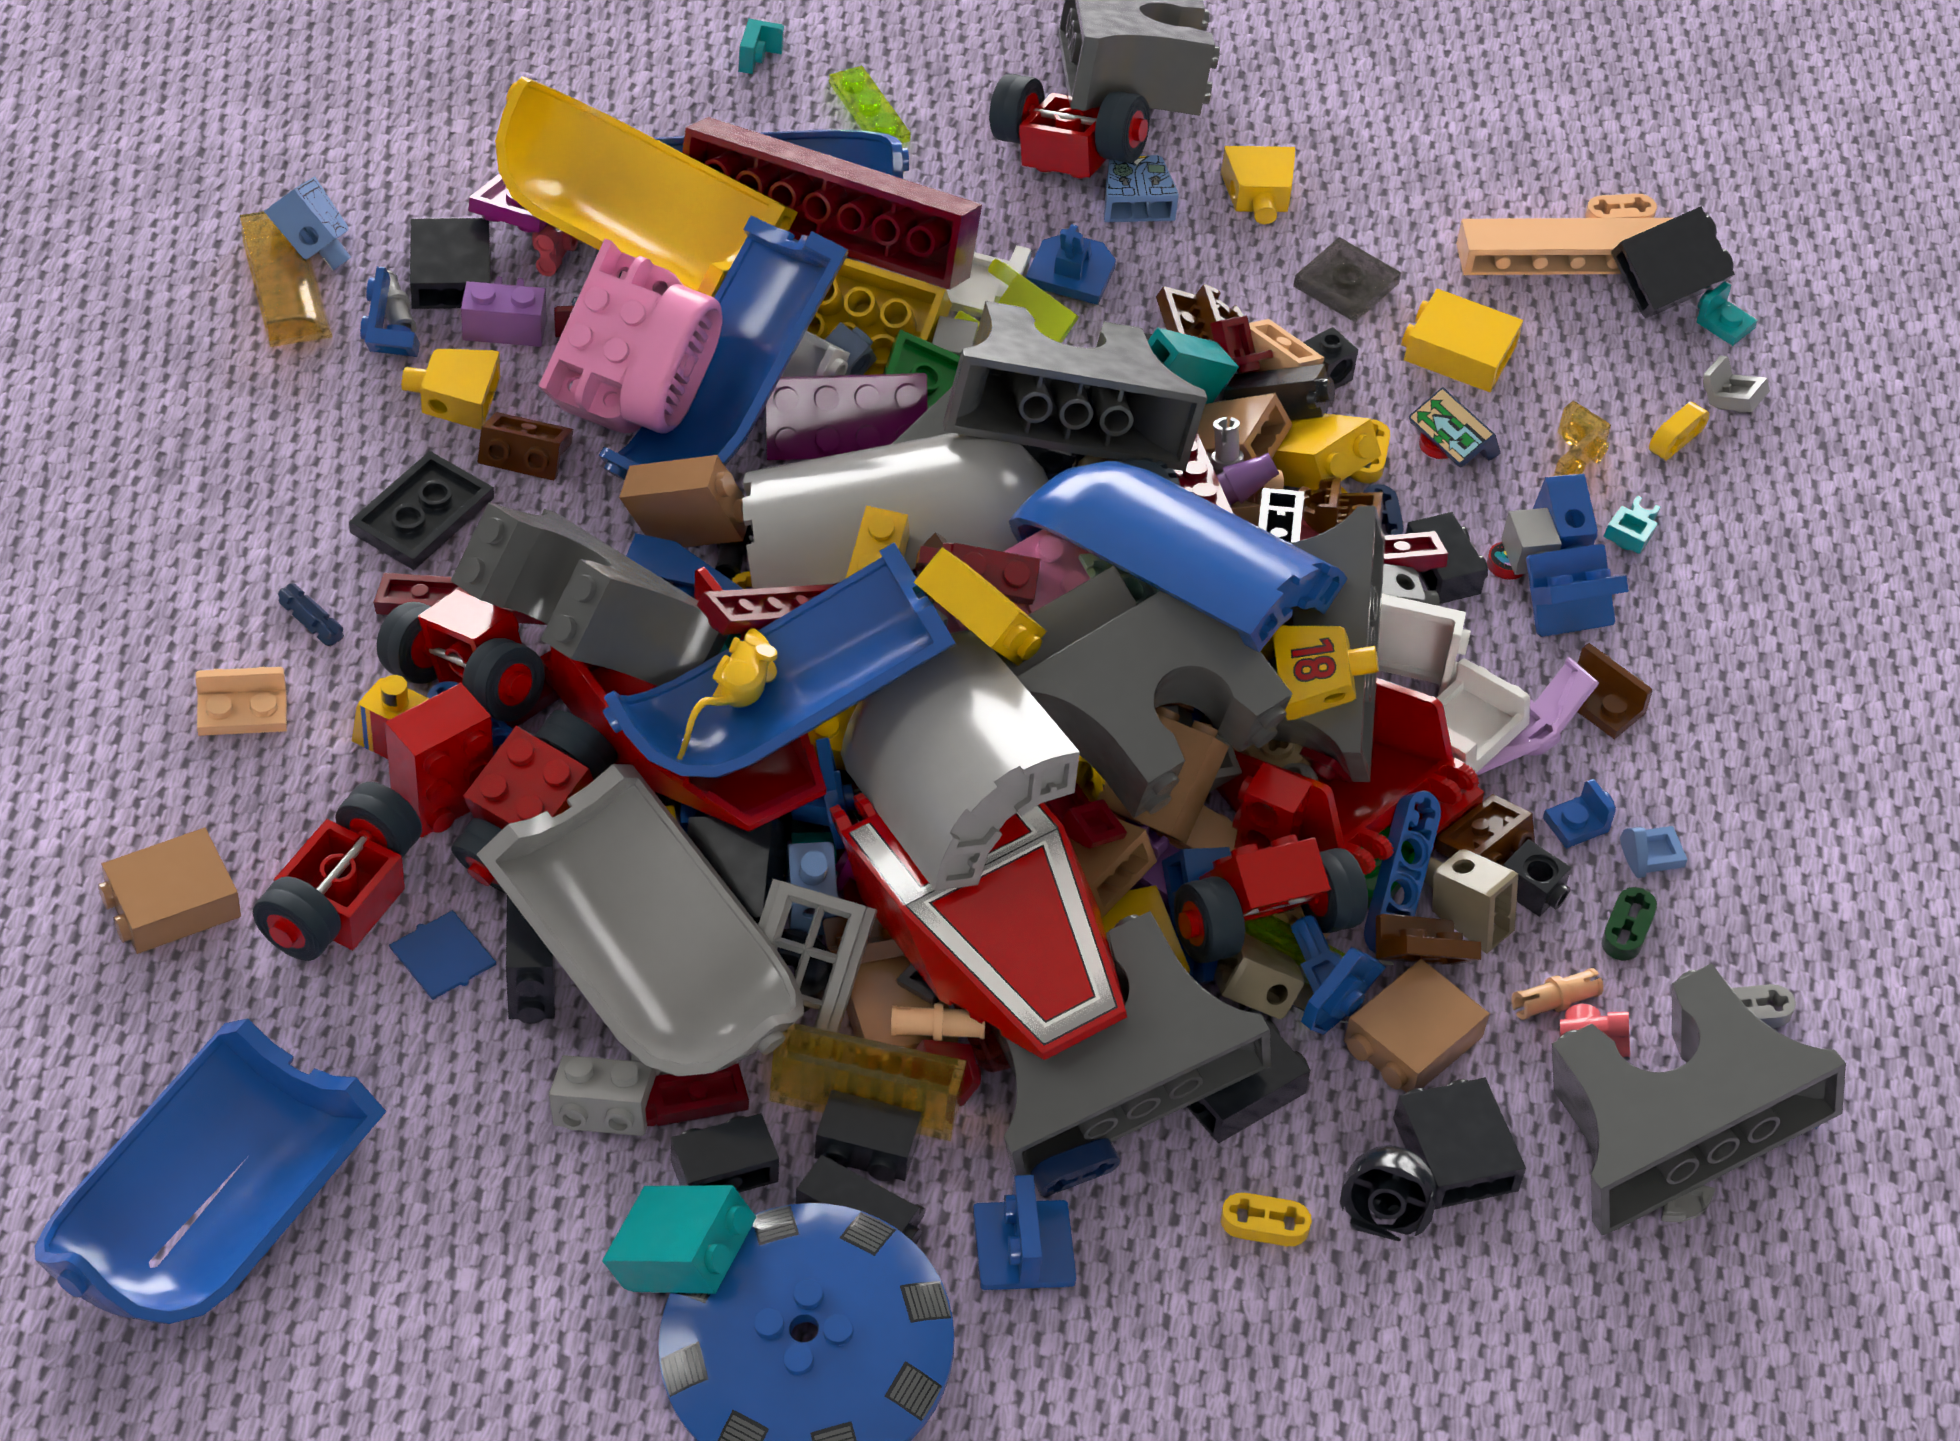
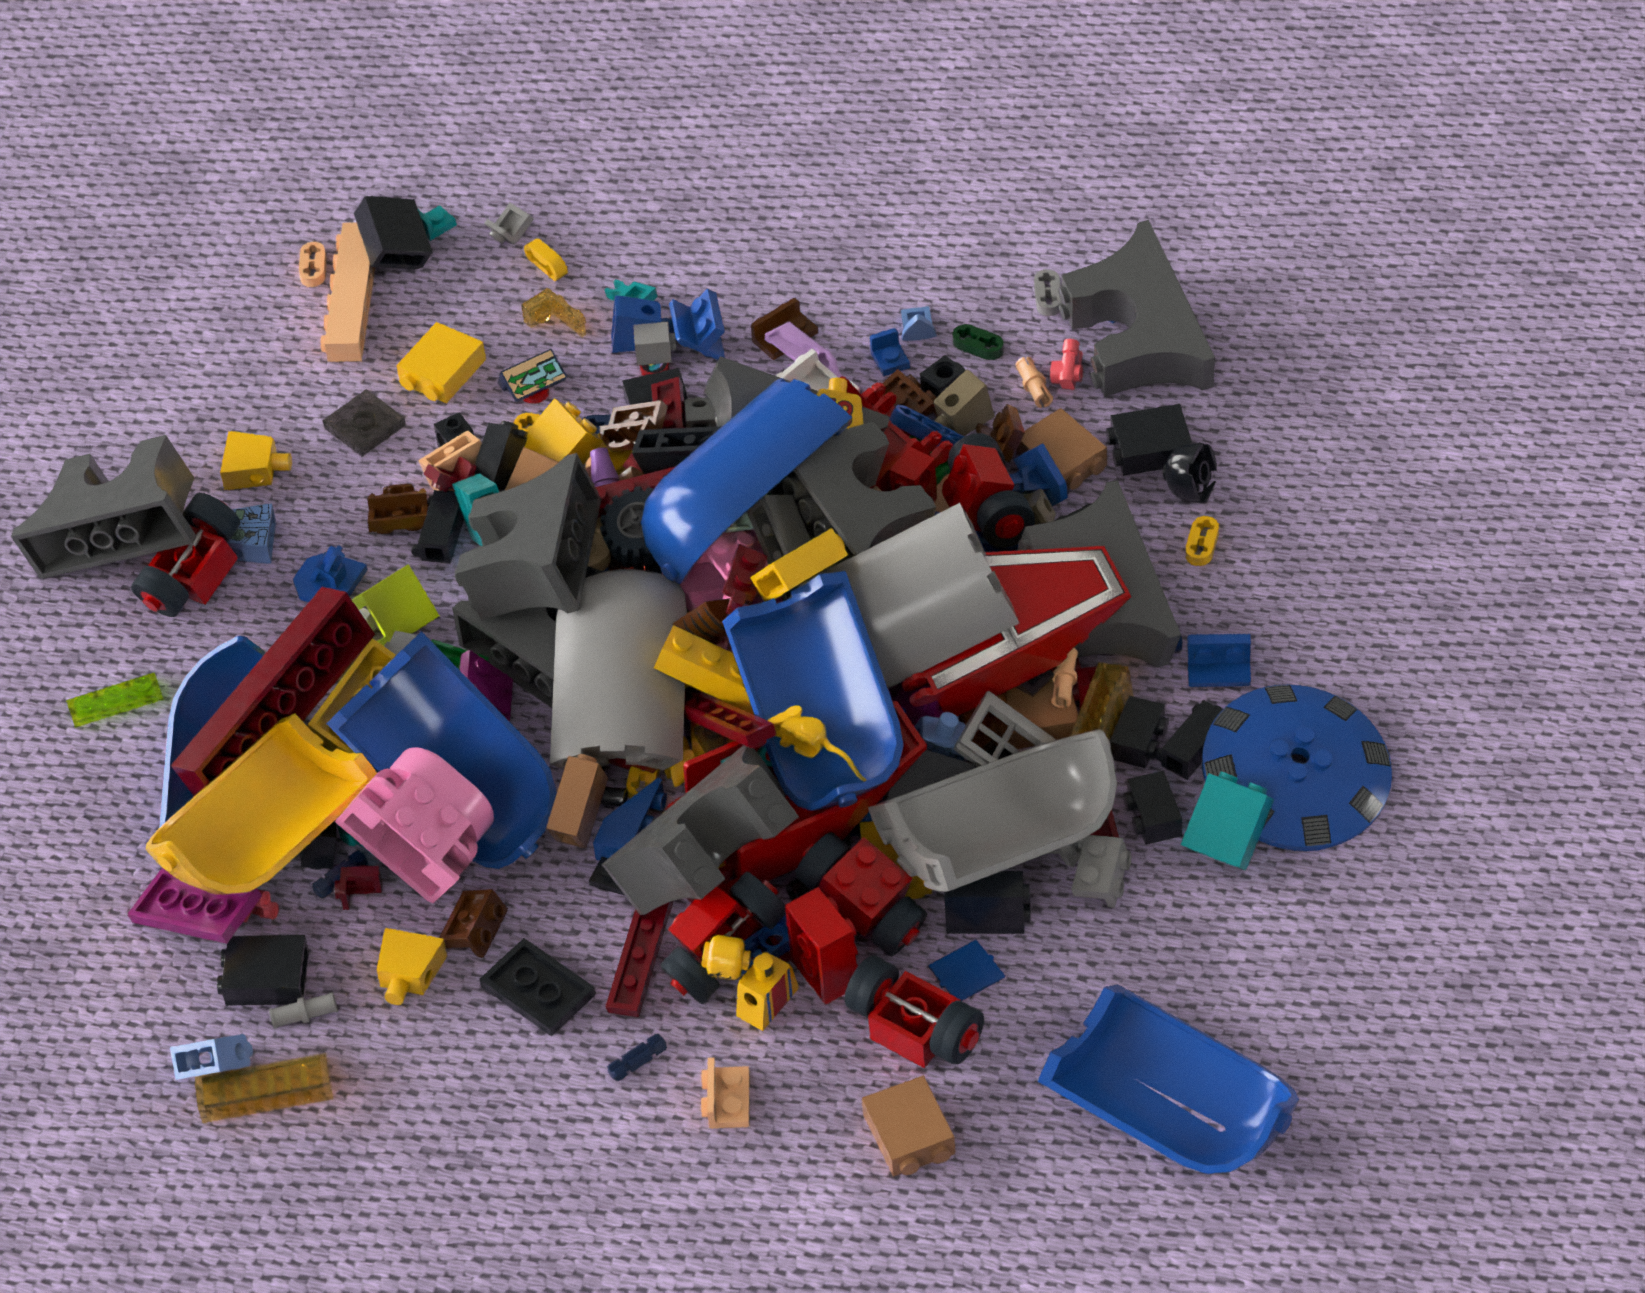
camera: 75 degrees left, 0 degrees up
(394, 339) = (337, 1015): blue bracket -> none
(411, 651) = (725, 957): none -> yellow head
(504, 313) = (331, 932): medium lavender brick -> none
(756, 41) = (29, 767): teal bracket -> none

